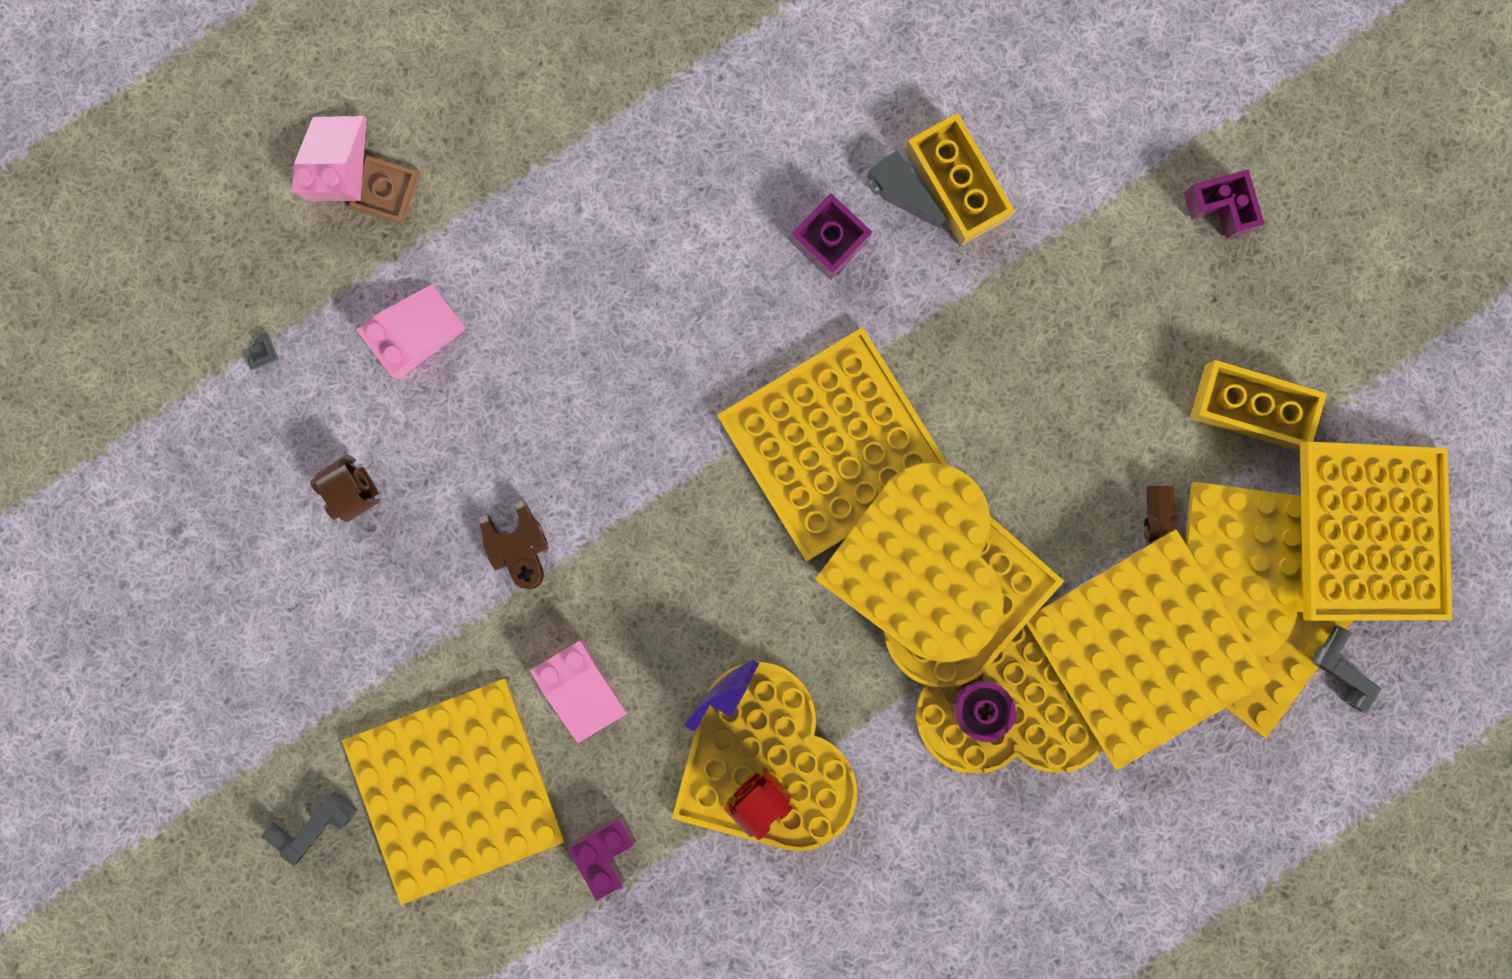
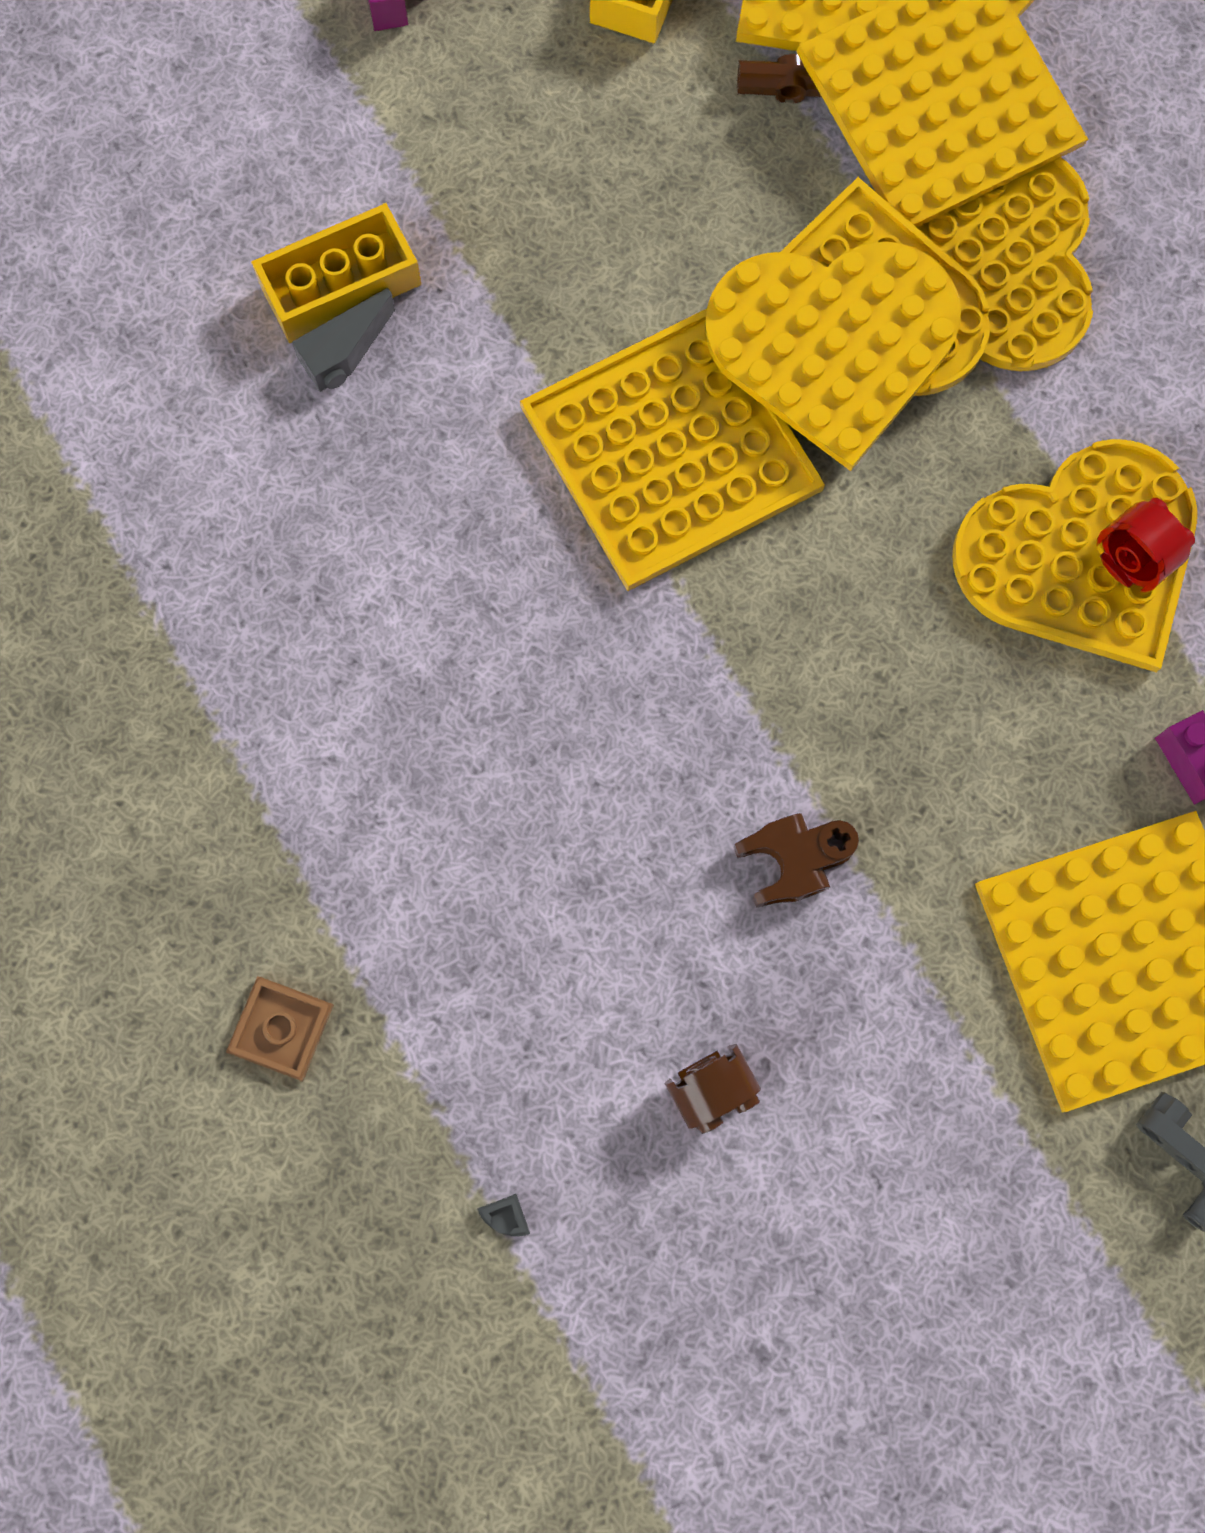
camera: 90 degrees left, 10 degrees down
(331, 160) = (228, 1099): bright pink slope -> none
(411, 331) = (489, 992): bright pink slope -> none
(578, 691) = (990, 783): bright pink slope -> none
(724, 694) = (999, 579): dark purple slope -> none
(830, 236) = (399, 429): magenta brick -> none
(993, 724) = (1020, 275): magenta brick -> none

